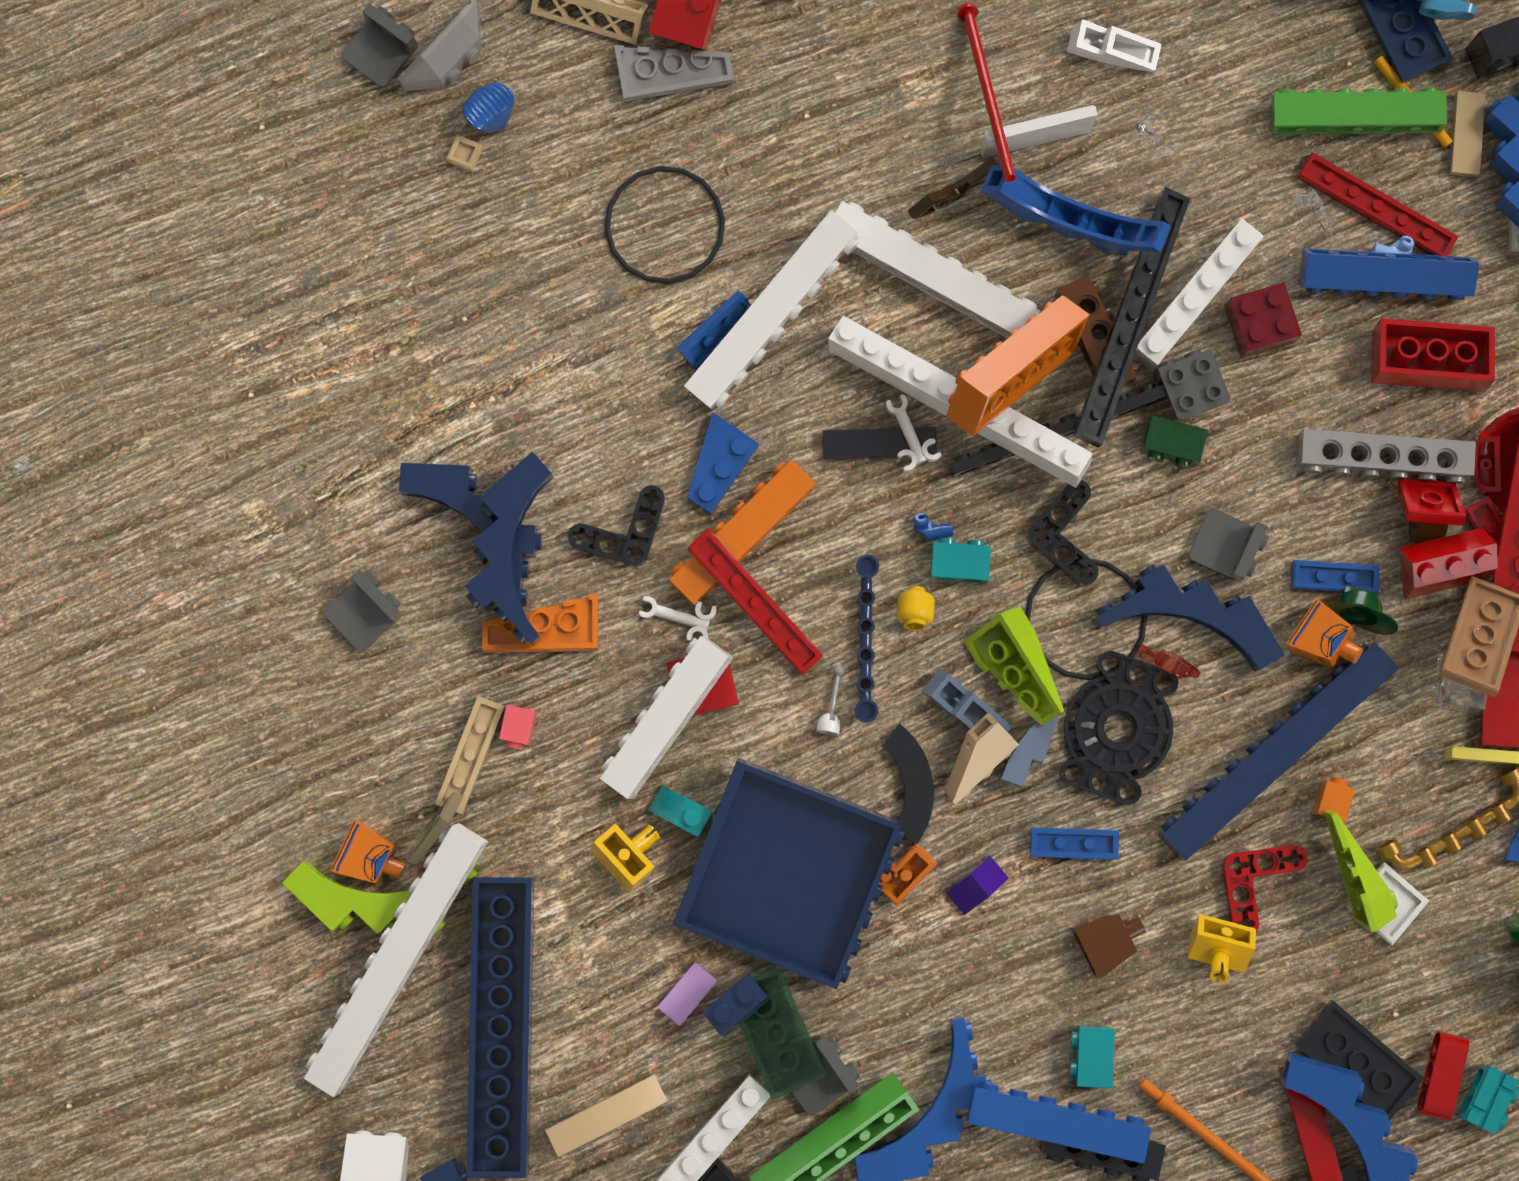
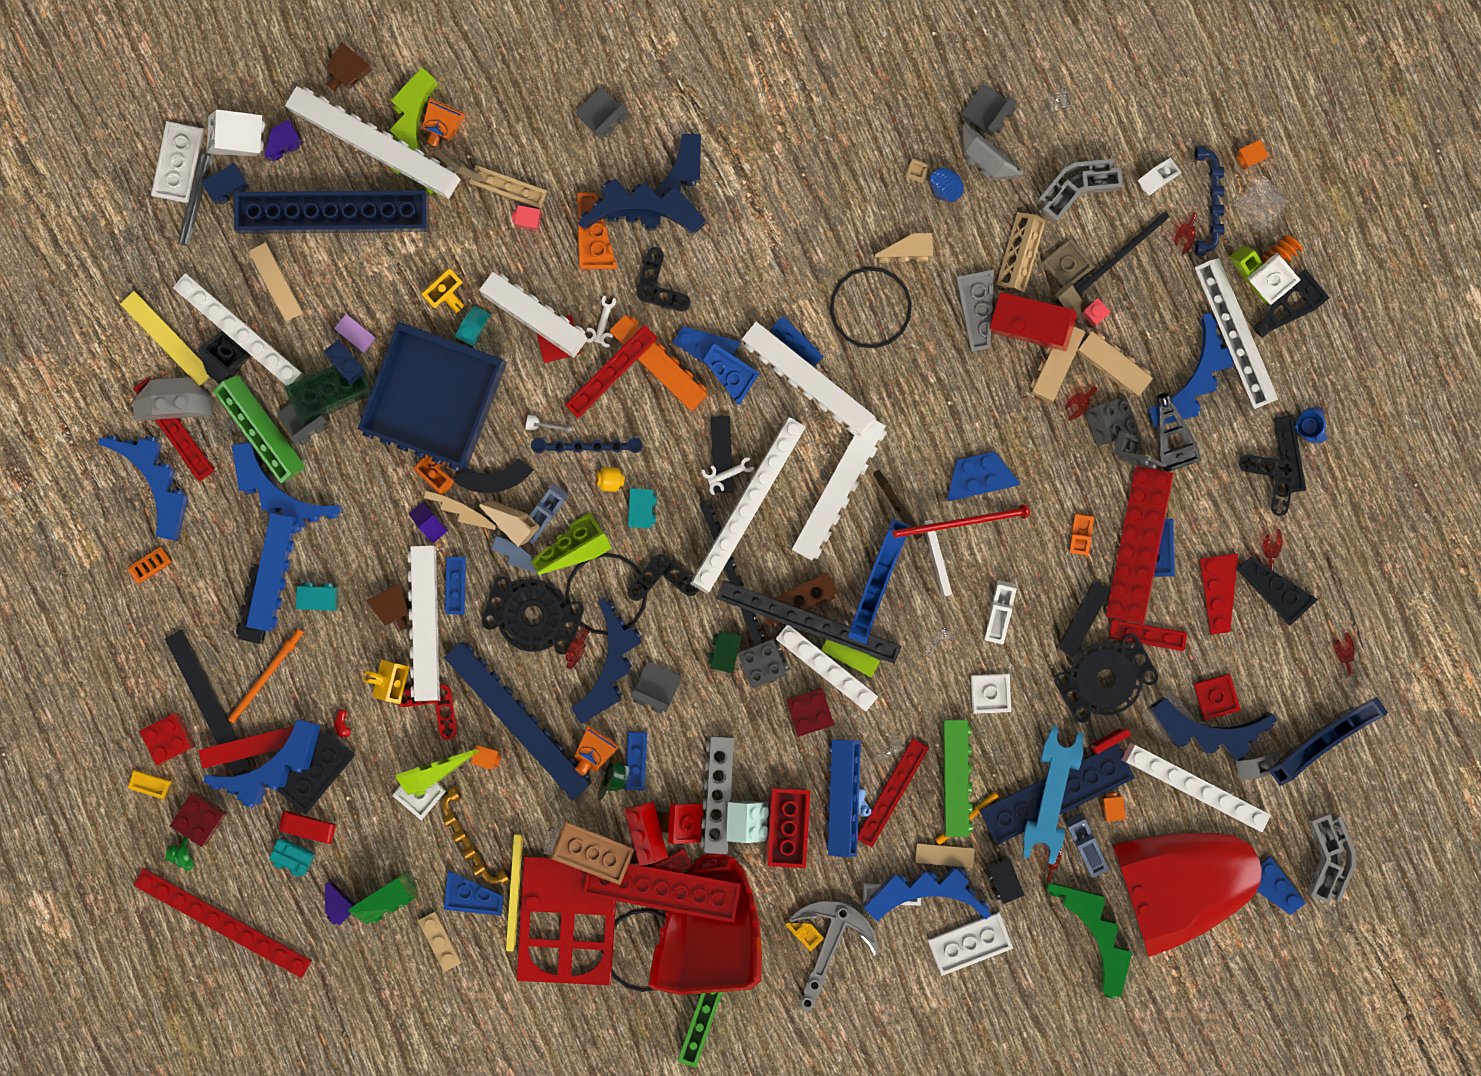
camera: 95 degrees right, 5 degrees up
(278, 1001) = (346, 68): none -> reddish brown torso
(386, 1104) = (281, 140): none -> dark purple slope
(576, 157) = (914, 246): none -> tan slope
(758, 426) = (730, 371): none -> blue wing
(915, 73) = (979, 476): none -> blue wing
(929, 530) = (663, 488): blue arm -> none
(967, 824) = (466, 514): none -> tan slope
(1016, 365) = (769, 541): orange brick -> none
(1134, 889) = (425, 623): none -> white brick
(1183, 255) = (858, 660): none -> lime tile
(1231, 64) = (990, 693): none -> white tile
(1286, 1024) = (339, 724): none -> red arm
(1428, 410) = (747, 821): none -> light aqua brick

